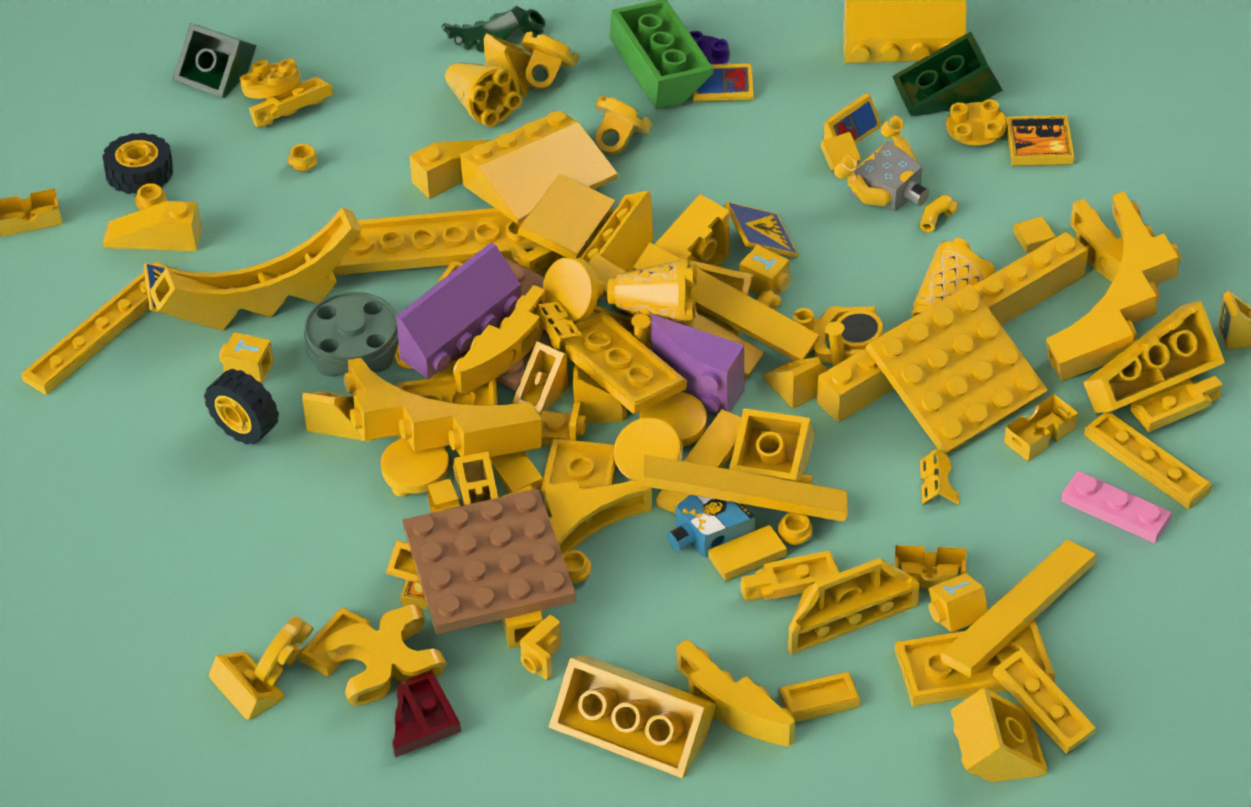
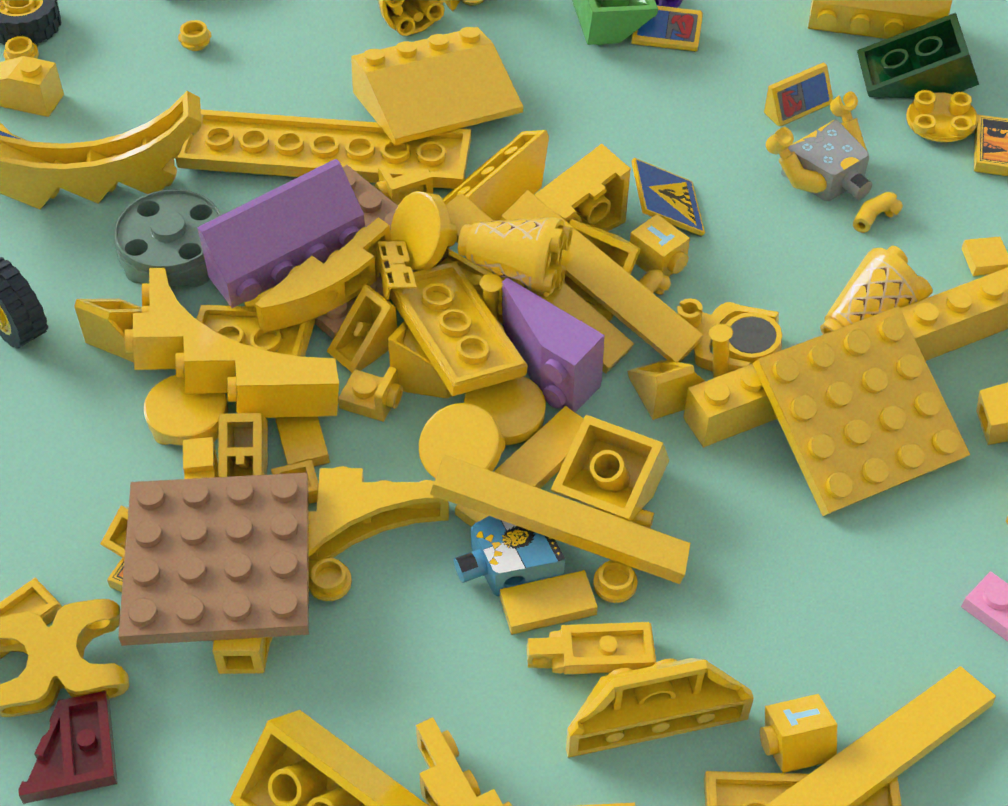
camera: 10 degrees right, 5 degrees up
(248, 354) = (46, 246): yellow brick -> none
(439, 166) = (328, 67): yellow slope -> none
(540, 645) = (251, 680): yellow bracket -> none
(566, 217) = (447, 146): yellow tile -> none
(581, 461) = (379, 444): yellow tile -> none
(620, 119) = (542, 48): yellow tile -> none
(837, 147) = (779, 116): yellow tile -> none
(930, 567) = (774, 673): yellow piece -> none
(944, 486) = (815, 561): yellow piece -> none
(1048, 421) = (946, 505): yellow piece -> none

